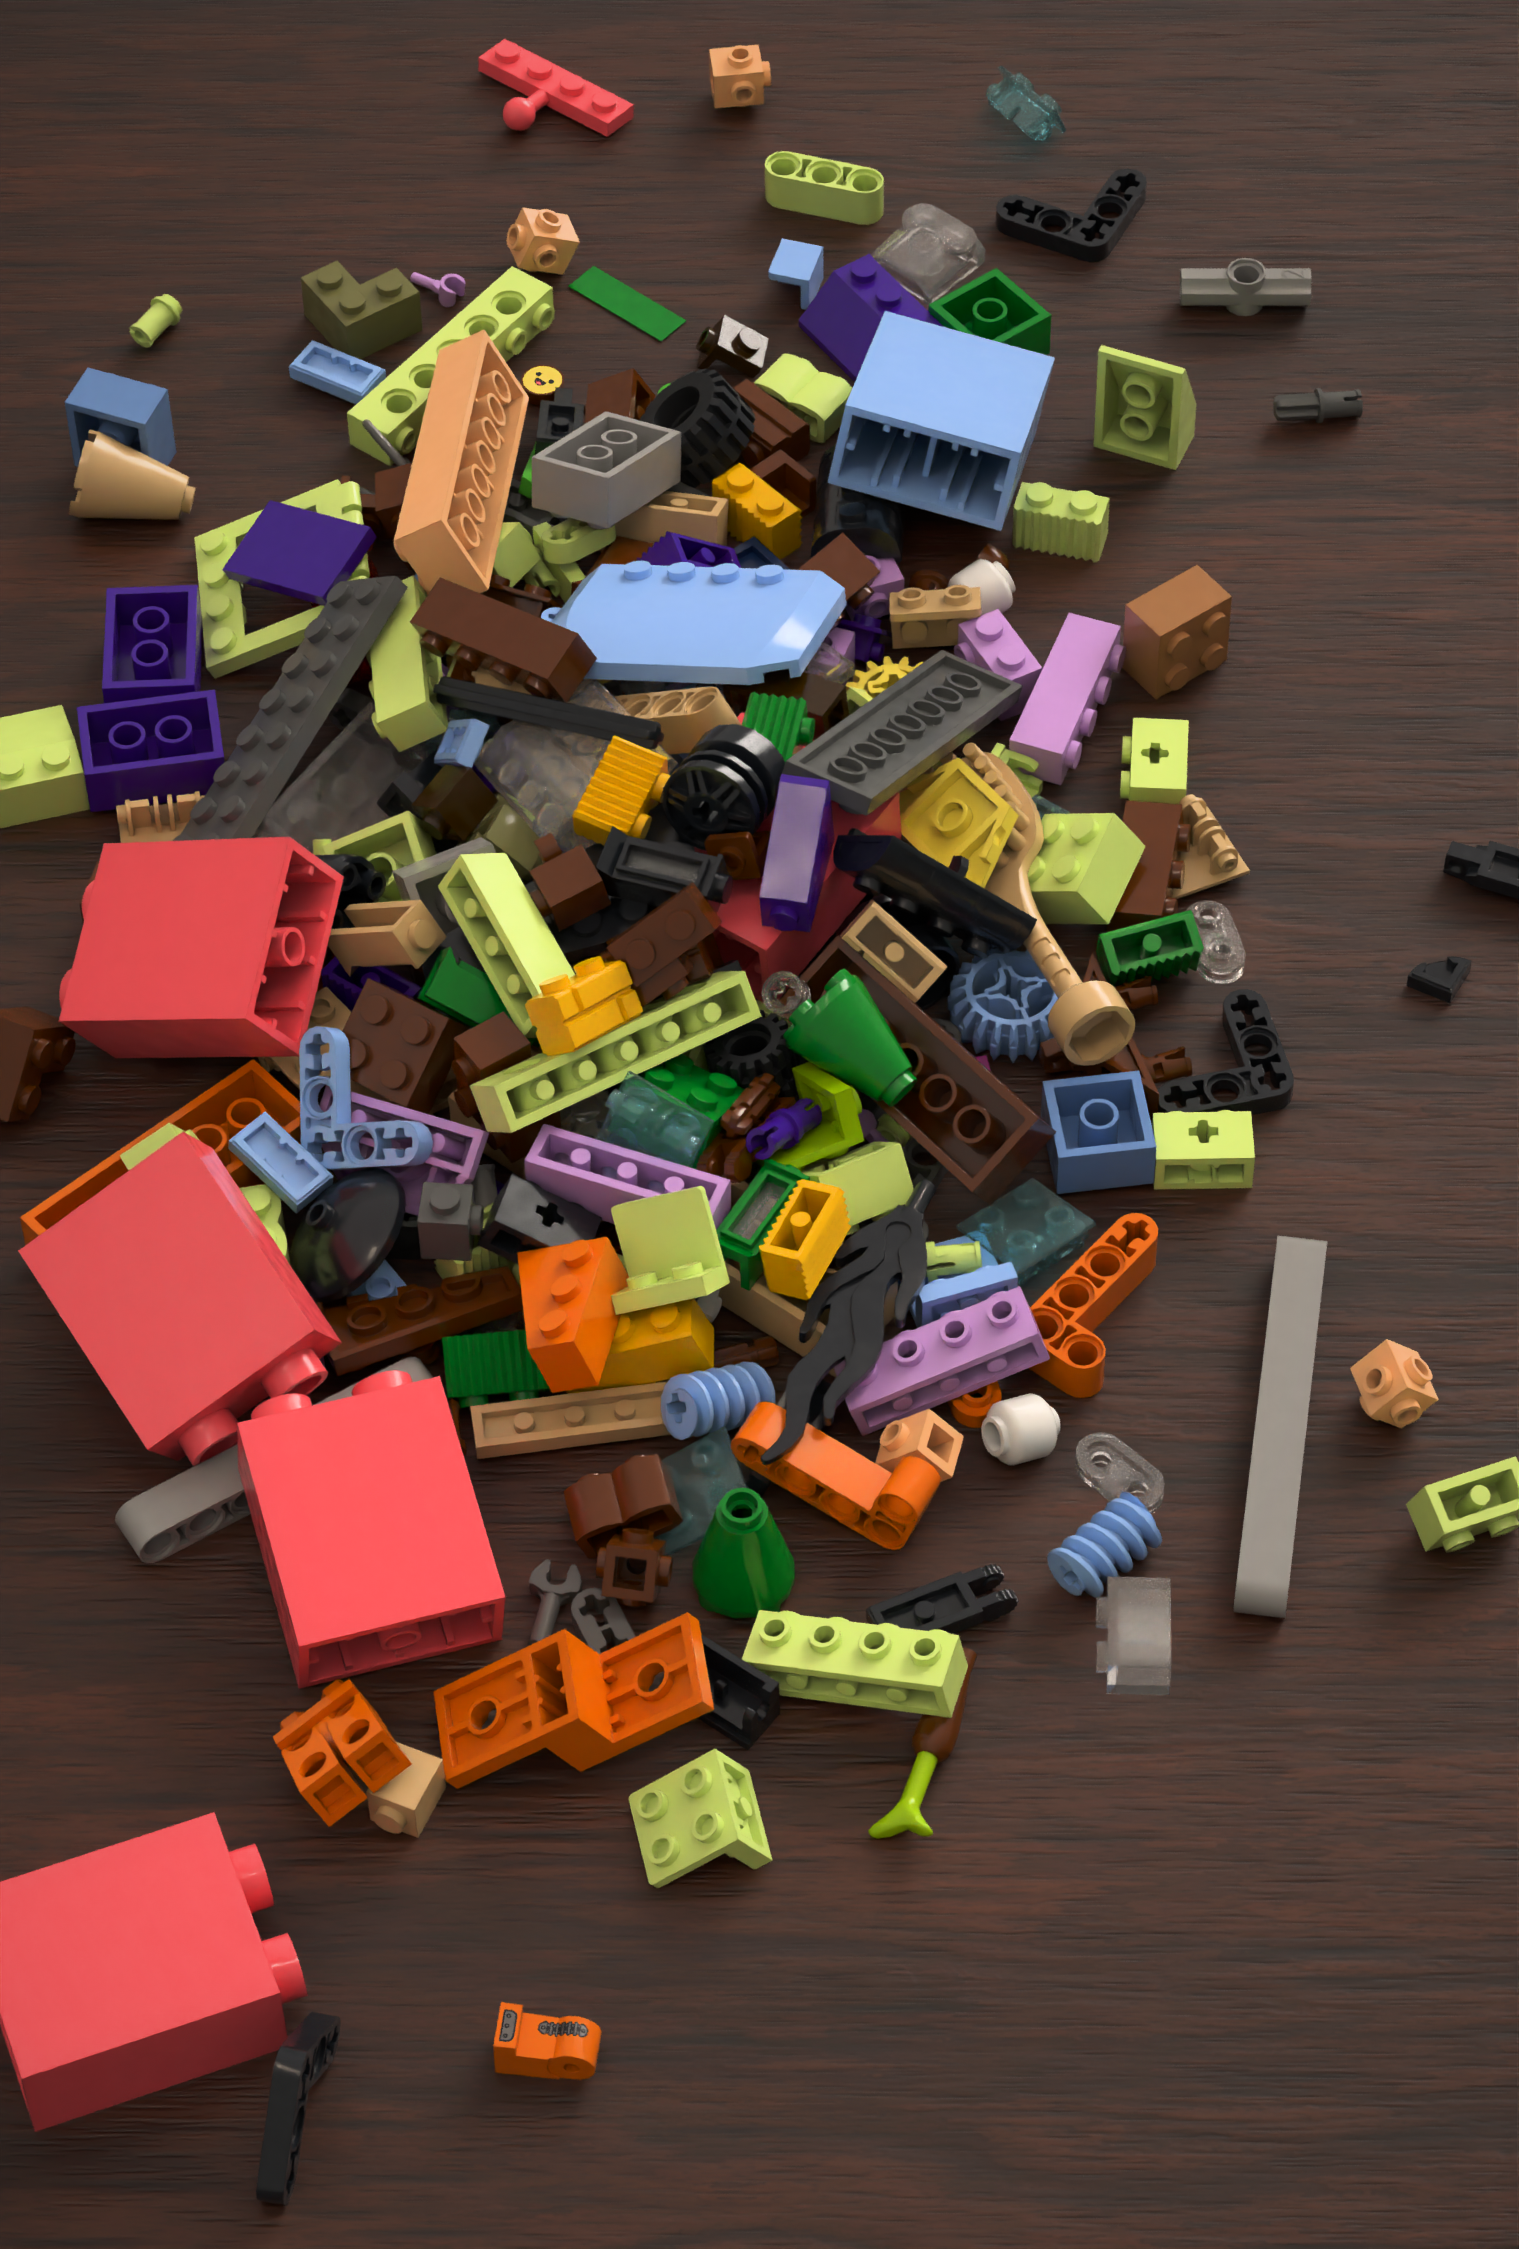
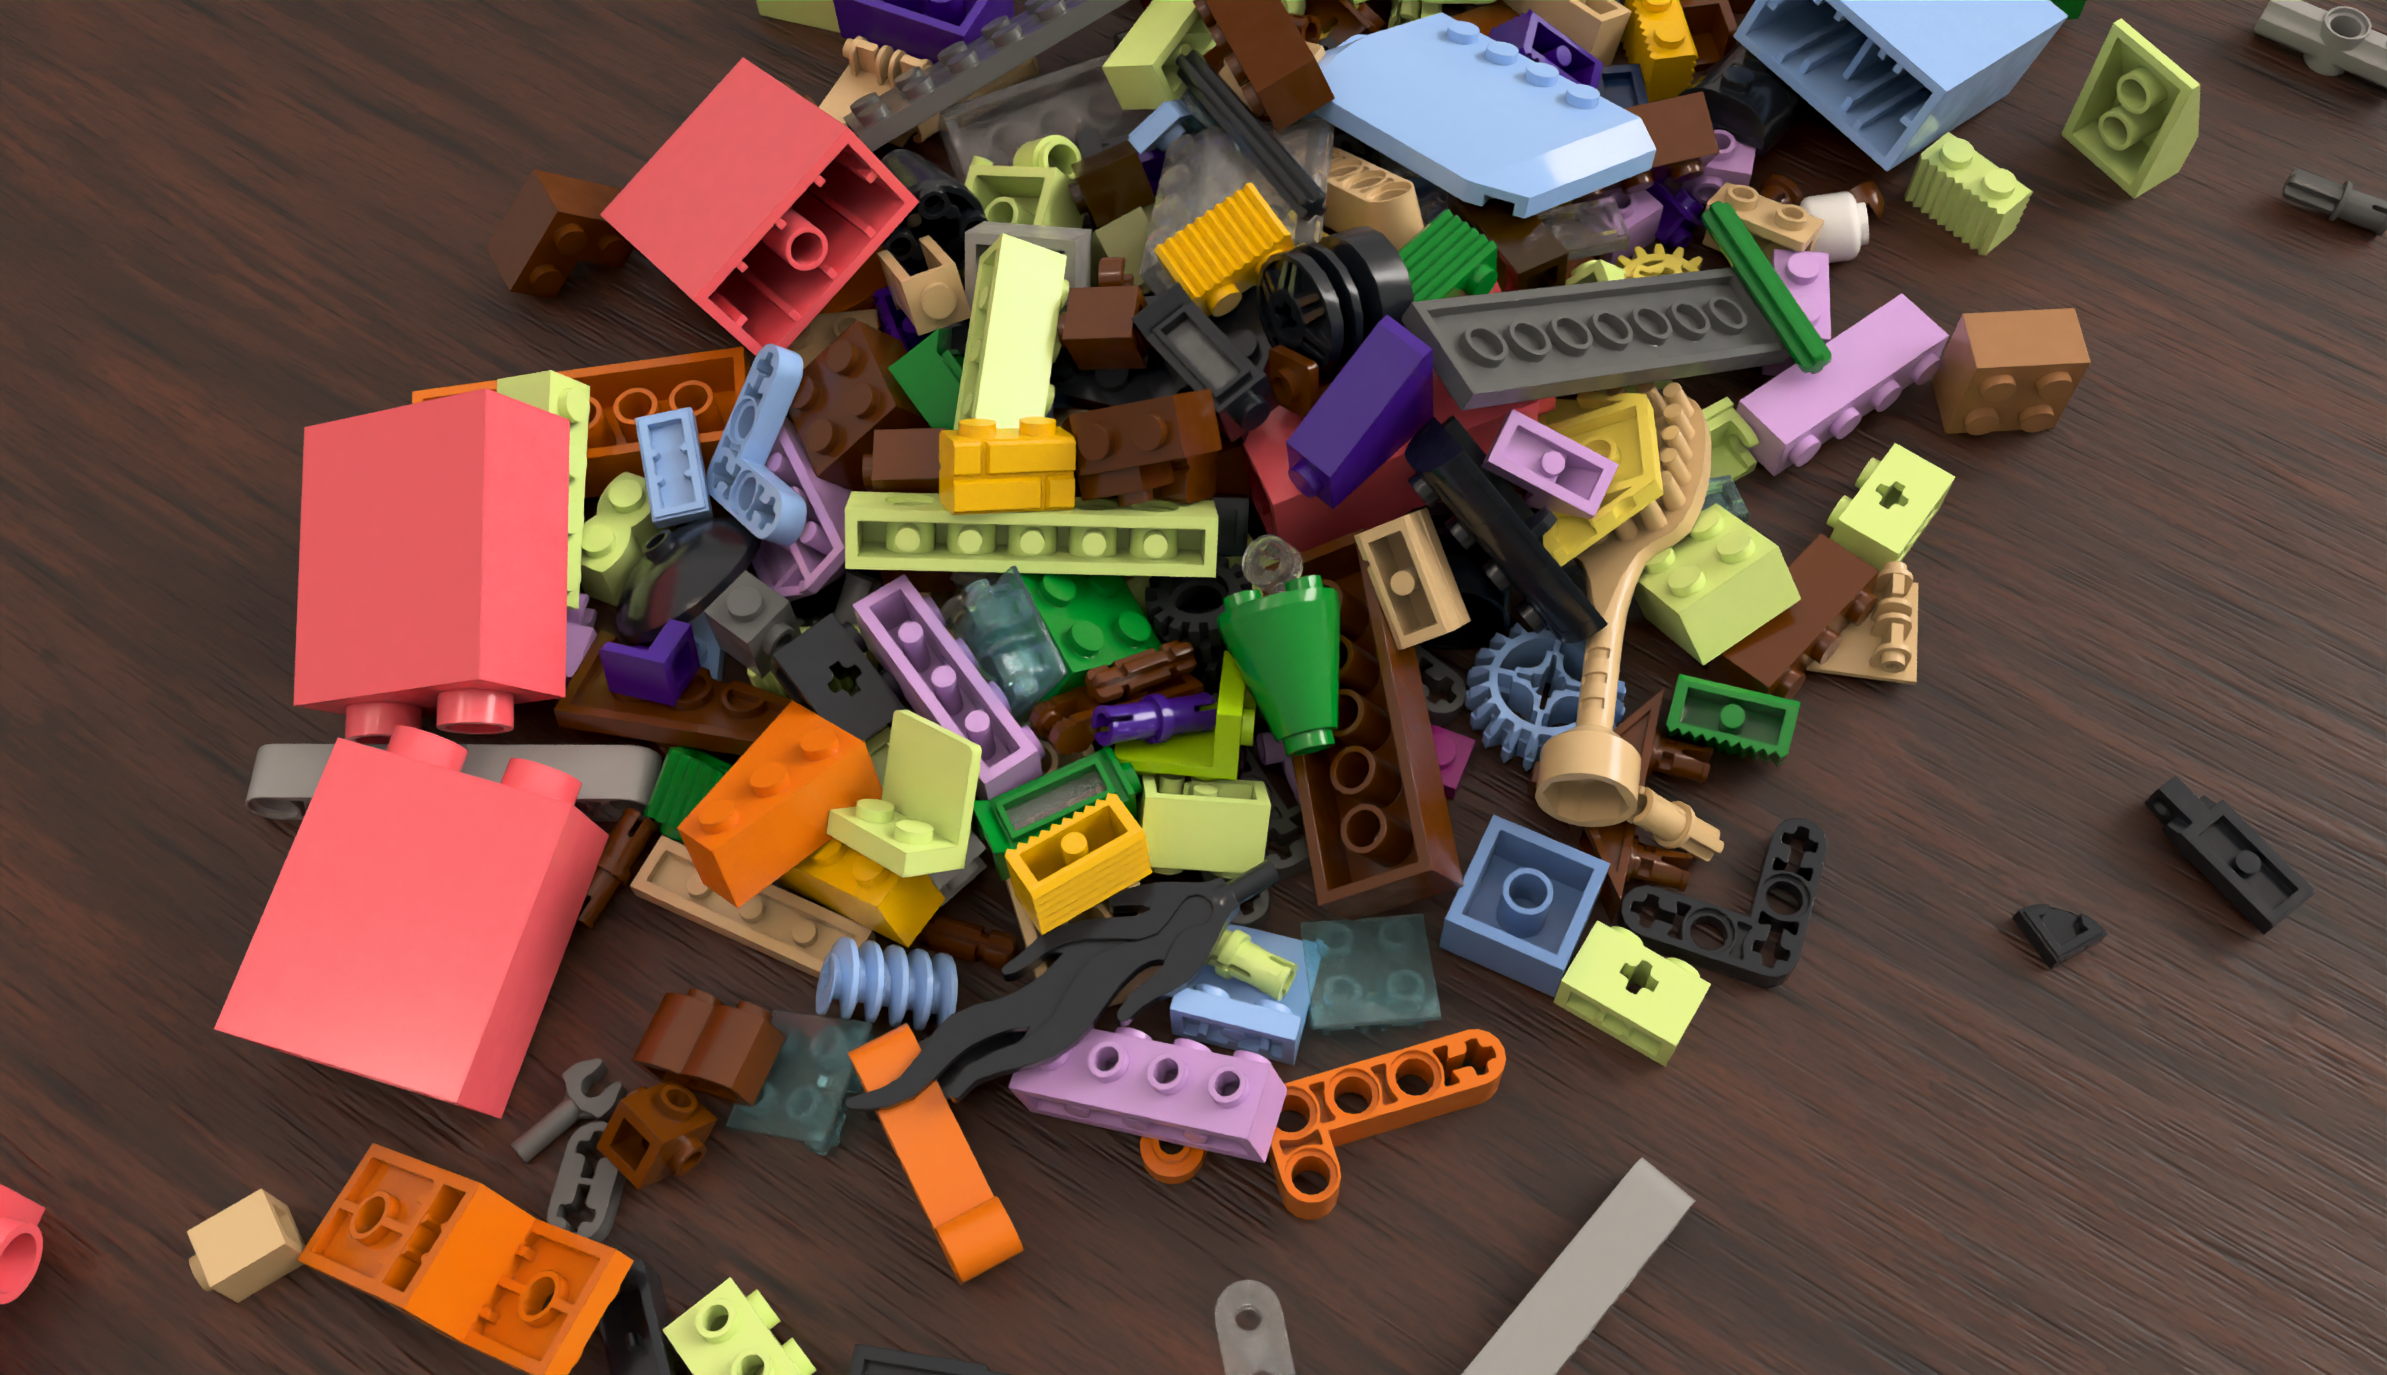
camera: 35 degrees right, 10 degrees up
(328, 1734) = (198, 1163): orange hips -> none
(374, 809) = (1049, 151): none -> yellowish green brick
(384, 1297) = (656, 671): none -> dark purple panel
(743, 1559) = (775, 1202): green cone -> none
(923, 1437) = (1049, 1182): light nougat brick -> none
(937, 830) = (1549, 467): none -> lavender slope
(975, 651) = (1766, 288): none -> green axle
(1020, 1429) = (1185, 1222): white head -> none
(1161, 1033) = (1675, 825): none -> tan axle
(1218, 936) = (1821, 740): clear plate -> none

